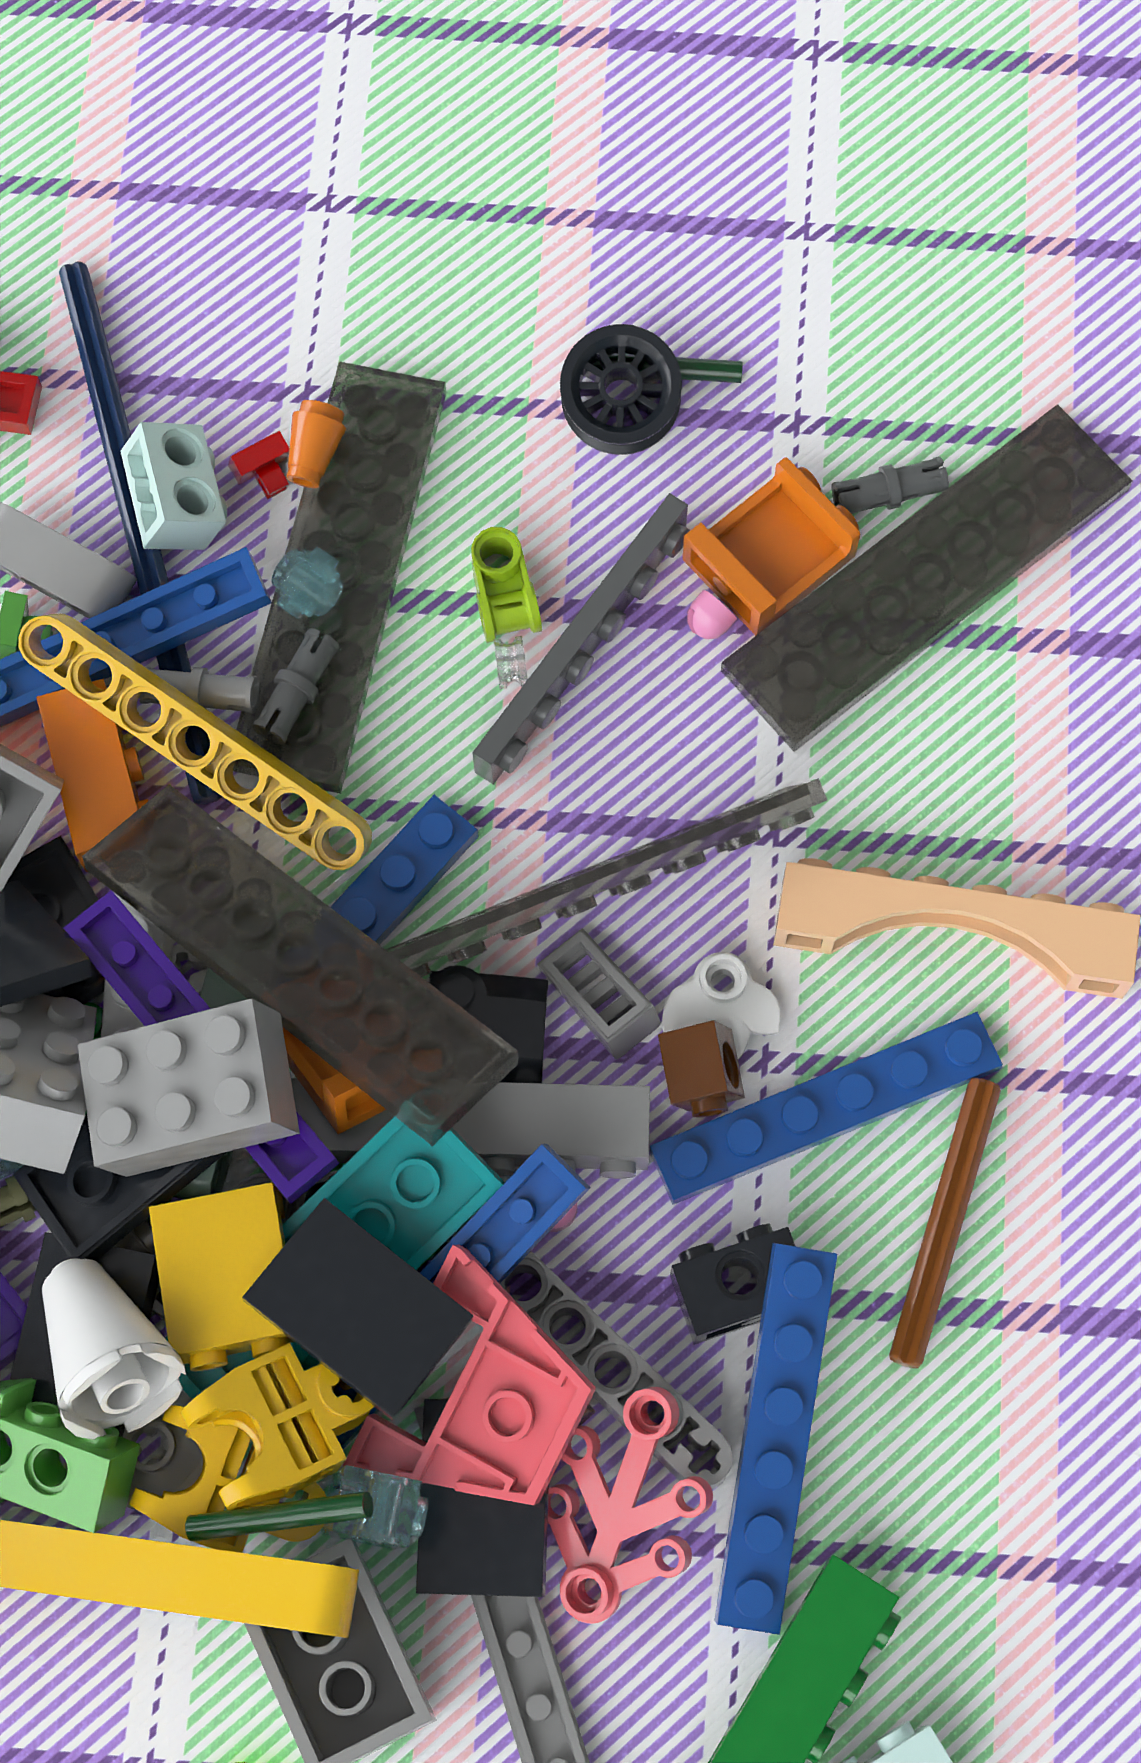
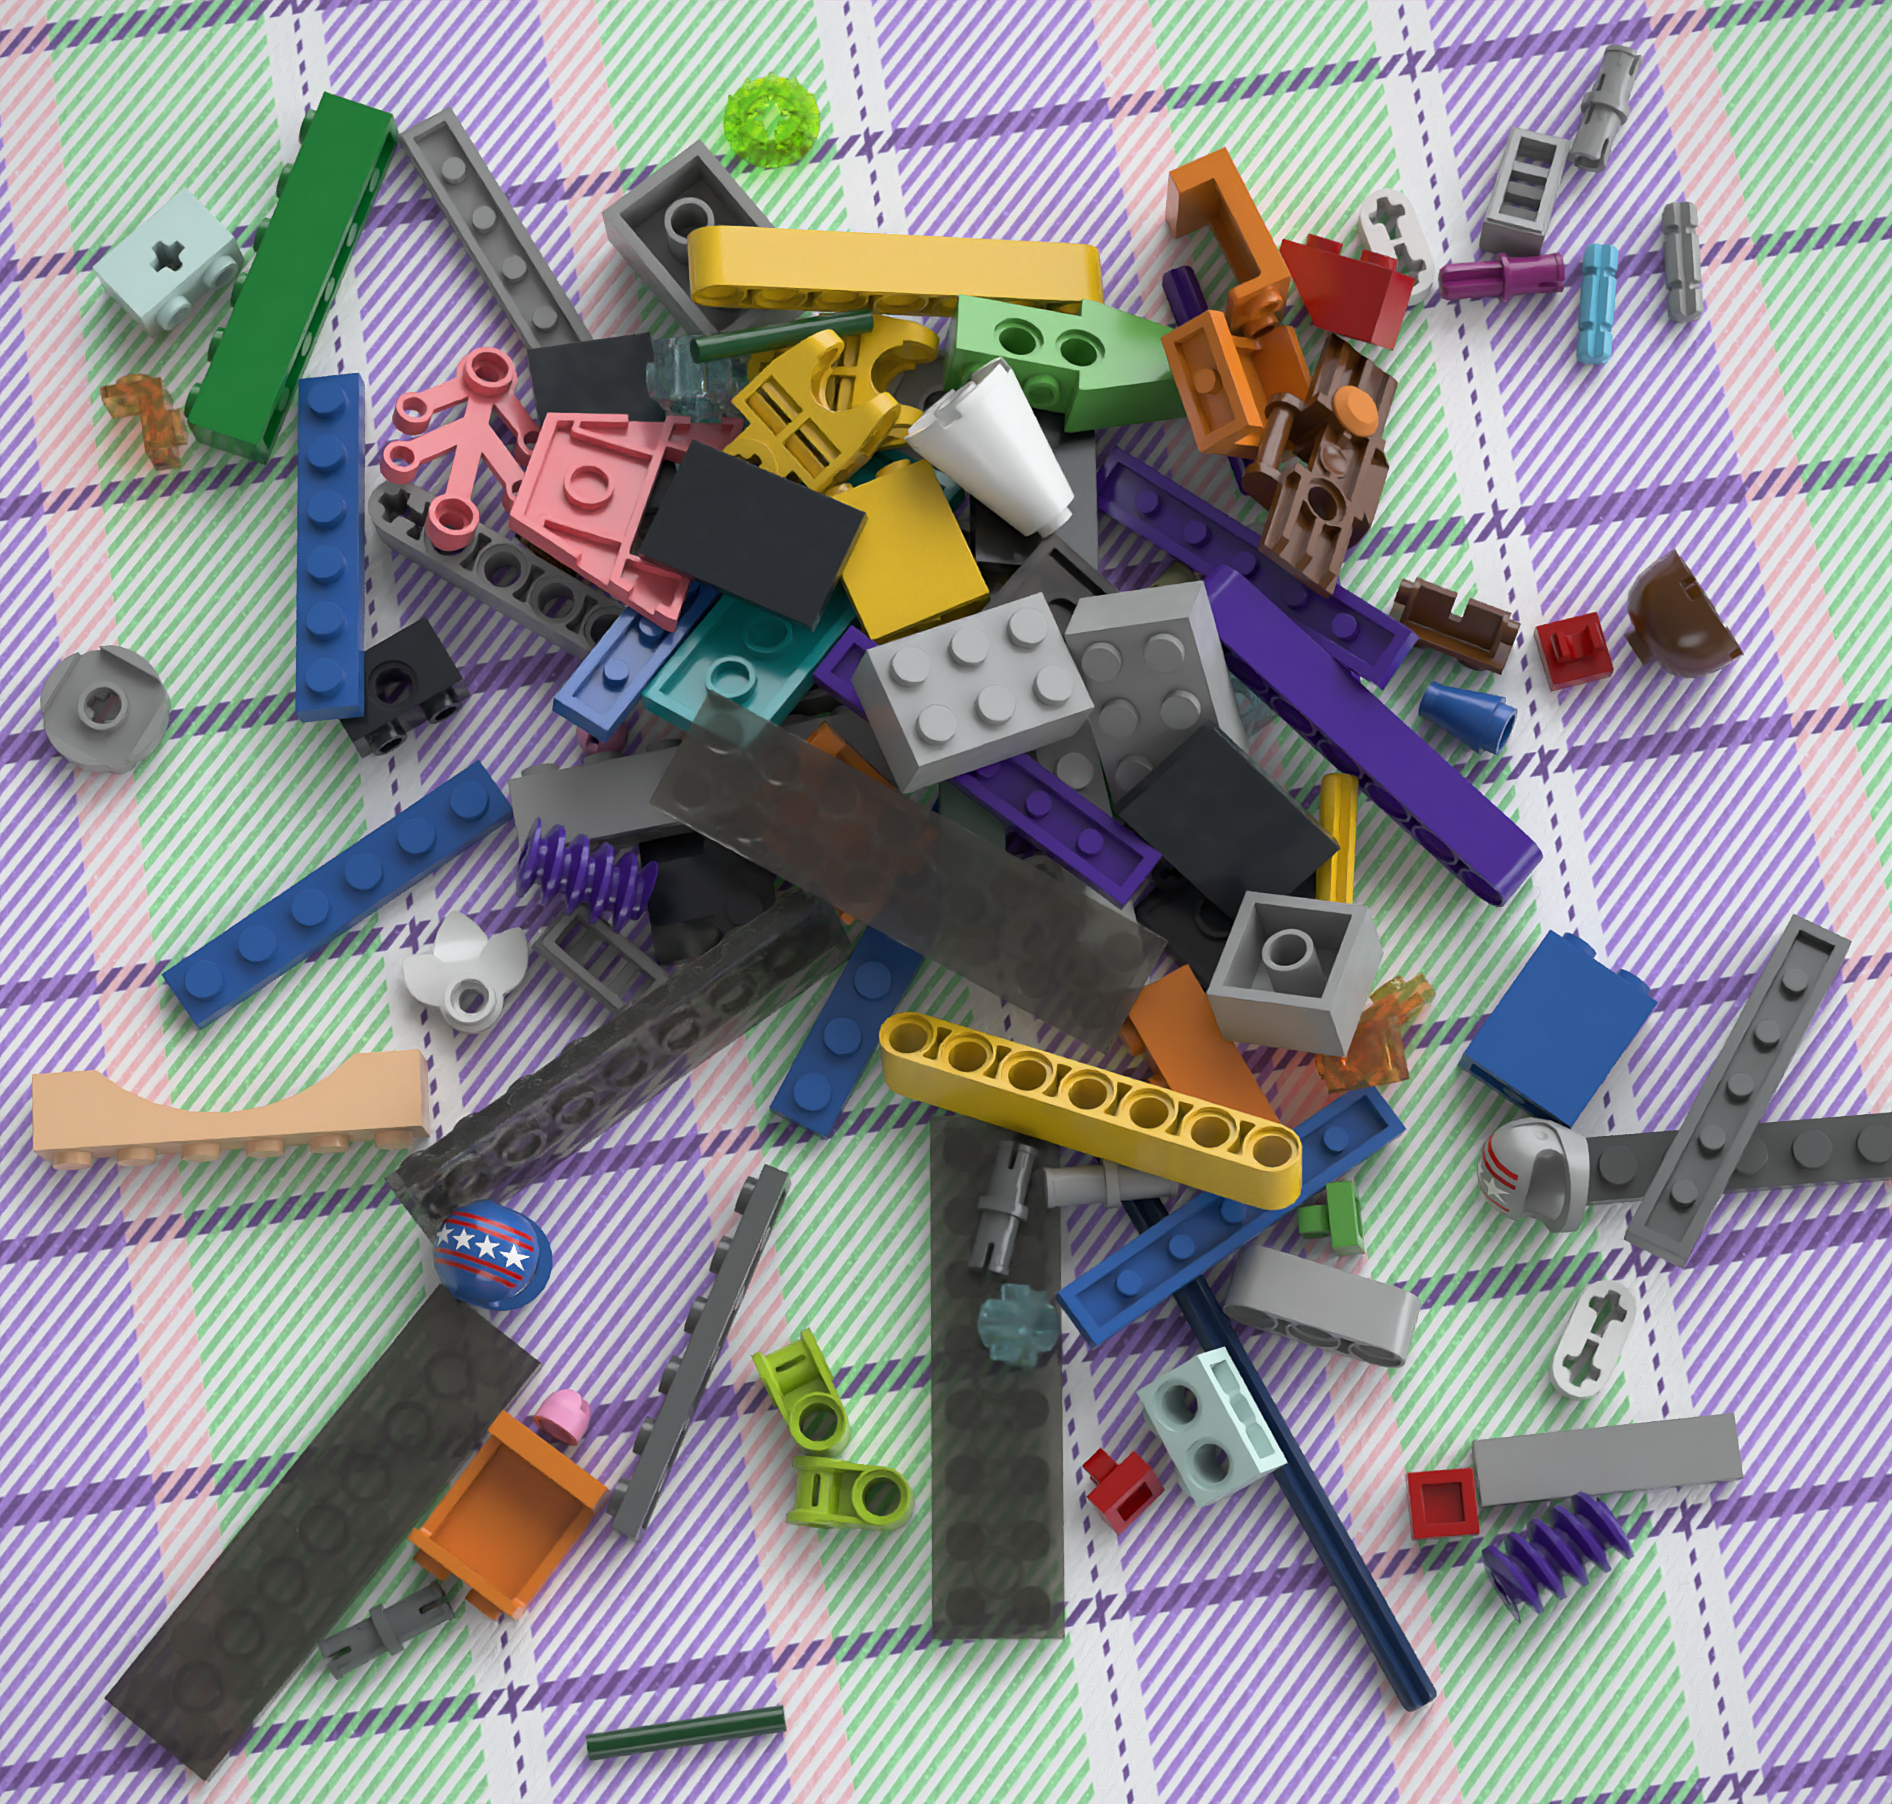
camera: 170 degrees right, 5 degrees up
(313, 441) = (1060, 1509): orange cone -> none
(490, 499) = (844, 1495): none -> lime piece
(510, 662) = (776, 1307): clear bush -> none
(593, 1040) = (584, 877): none -> dark purple piece
(620, 340) = (685, 1629): black wheel -> none
(701, 1068) = (473, 892): reddish brown brick -> none
(746, 751) = (490, 1255): none -> blue helmet
(925, 1612) = (161, 423): none -> clear orange bracket
(944, 1223) = (197, 805): dark orange axle -> none
(1057, 1328) = (94, 675): none -> light grey plate

